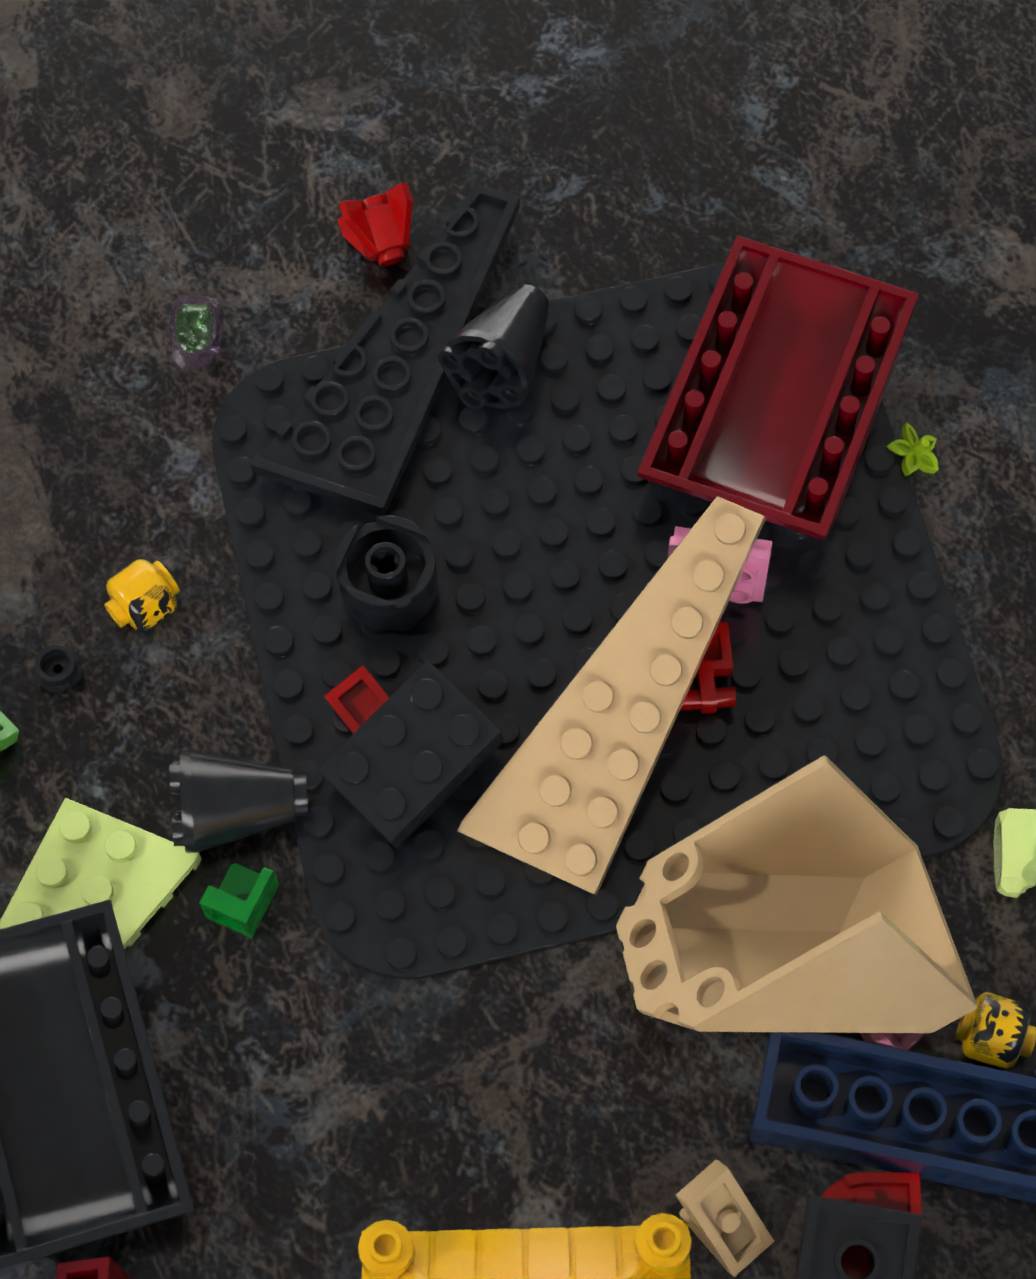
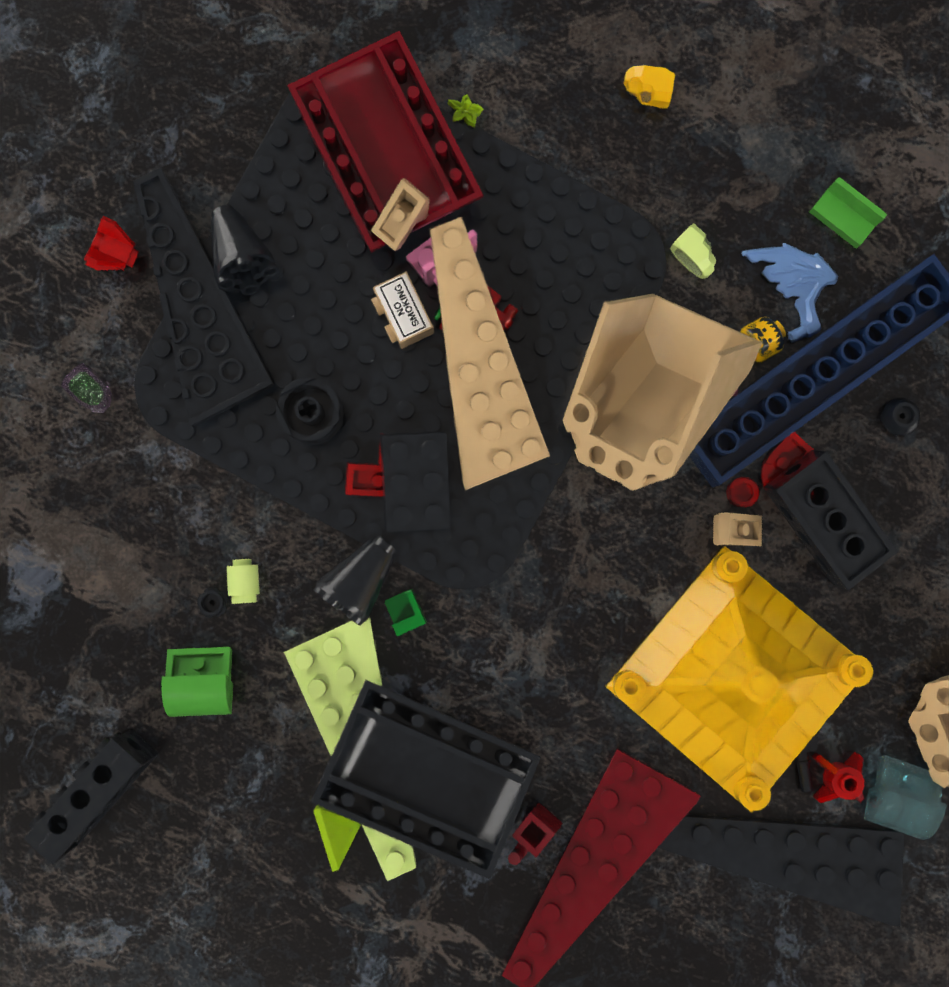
camera: 55 degrees left, 20 degrees up
(113, 678) = (243, 581): none -> yellowish green brick
(141, 595) = (210, 532): yellow head -> none
(606, 575) = (403, 310): none -> brick
(707, 460) = (401, 214): none -> tan slope
(780, 1187) = (742, 492): none -> red tile

